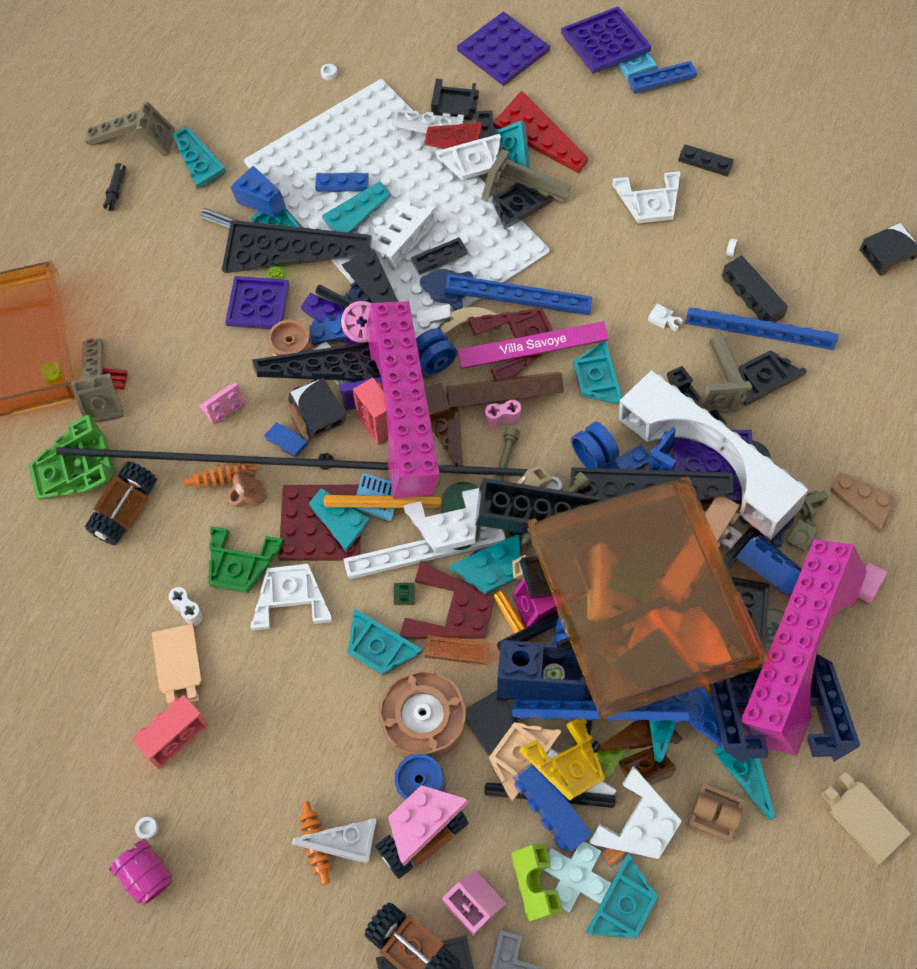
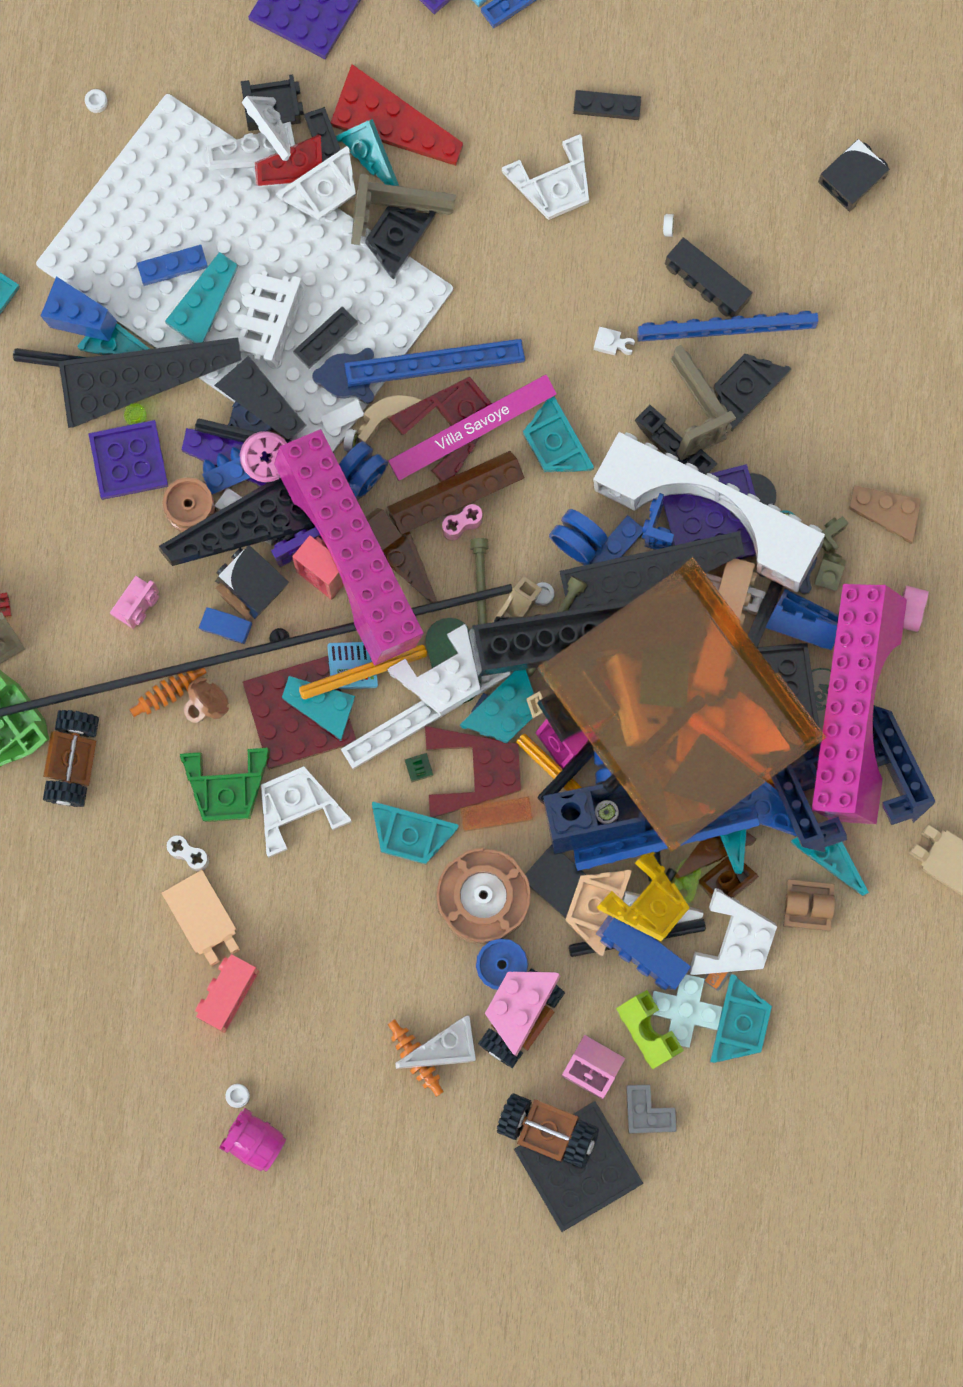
camera: 20 degrees left, 15 degrees up
(446, 104) = (269, 122): none -> white wing

